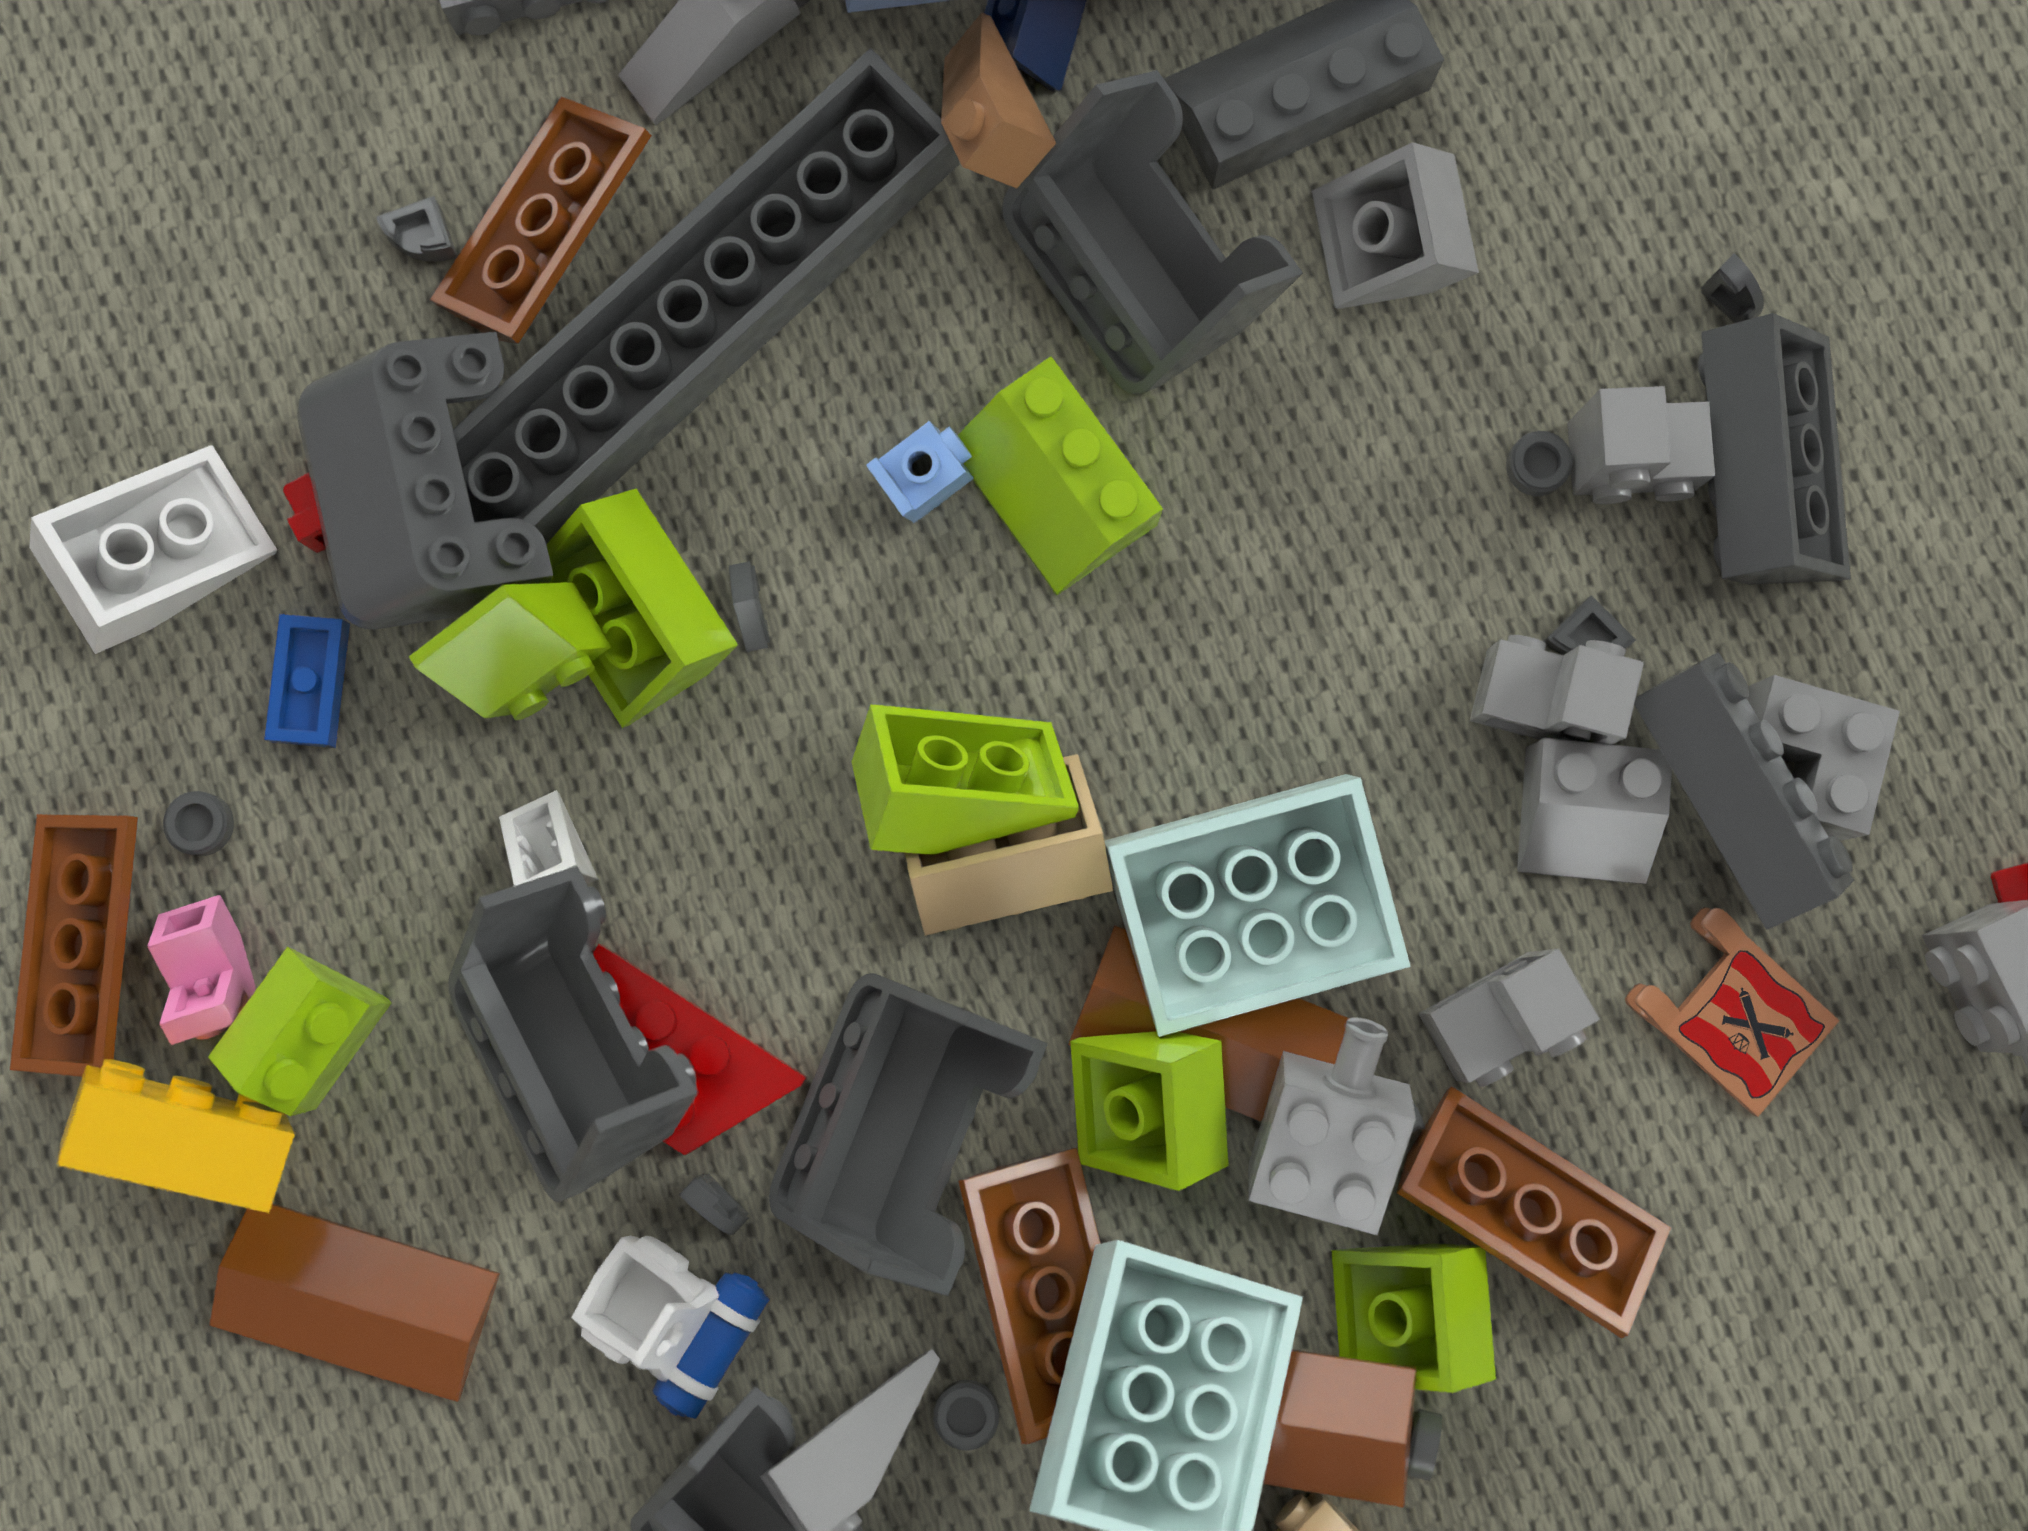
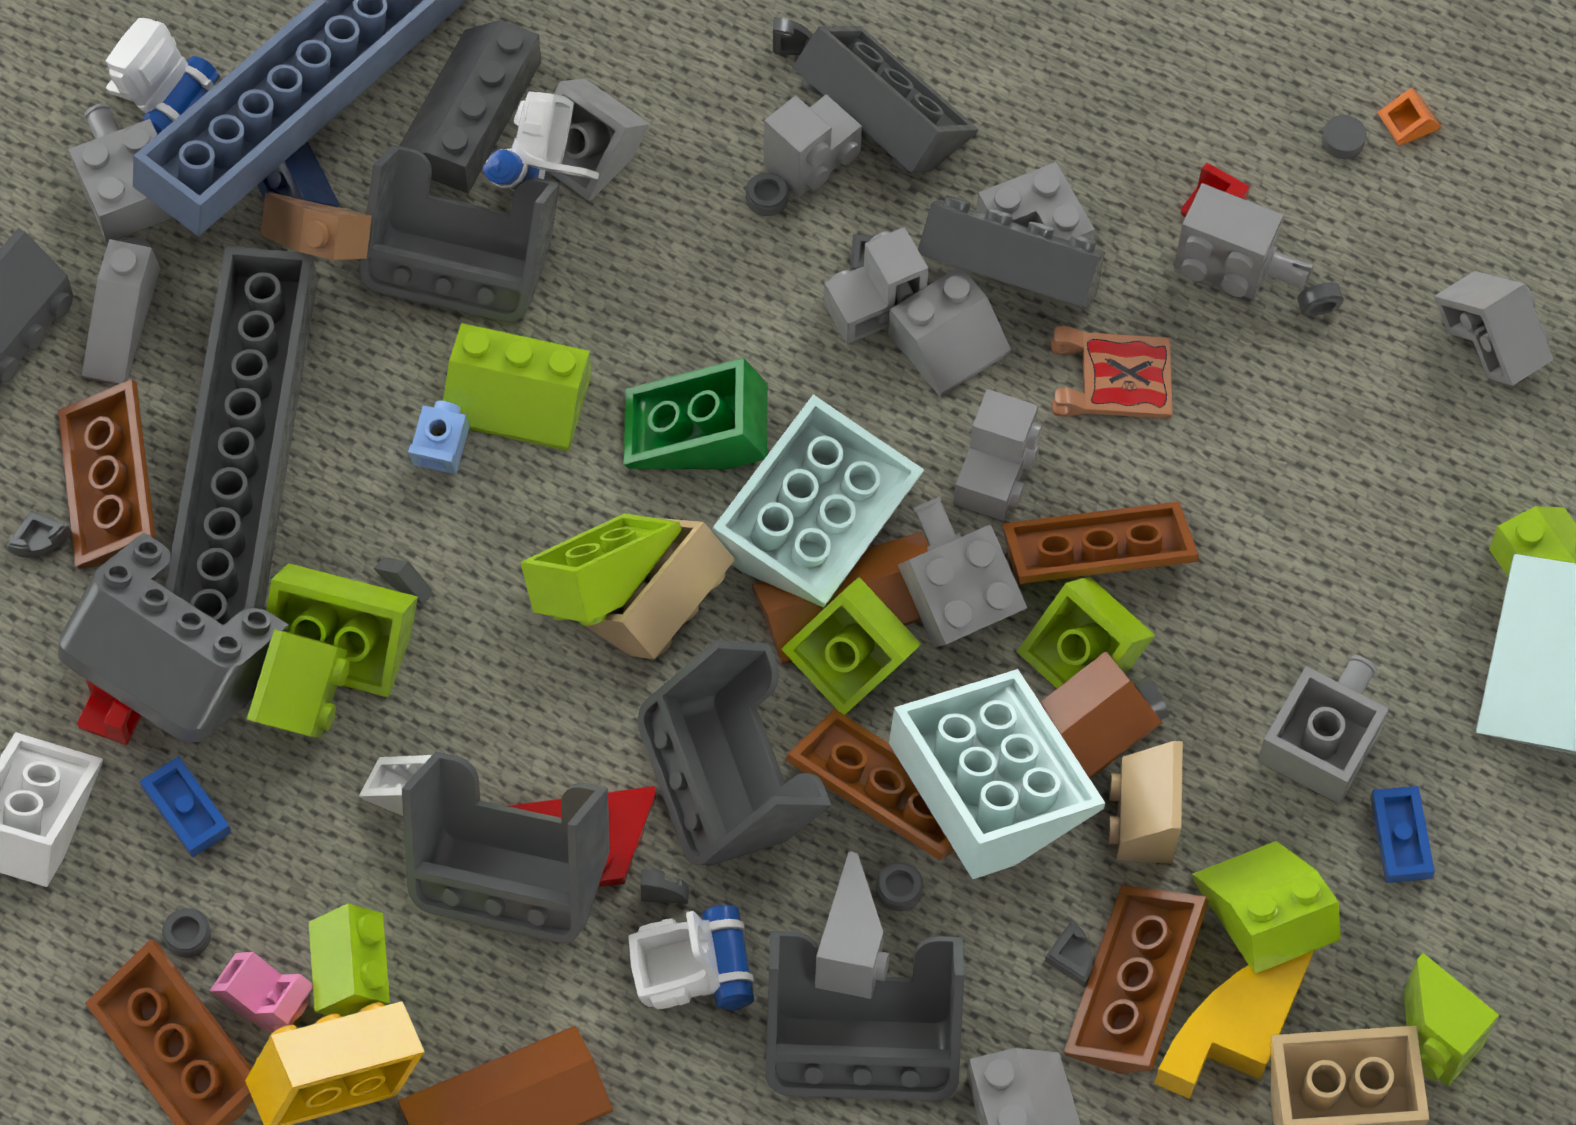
camera: 40 degrees left, 20 degrees down
(1220, 683) = (698, 419): none -> green slope
(1320, 205) = (539, 143): none -> white piece

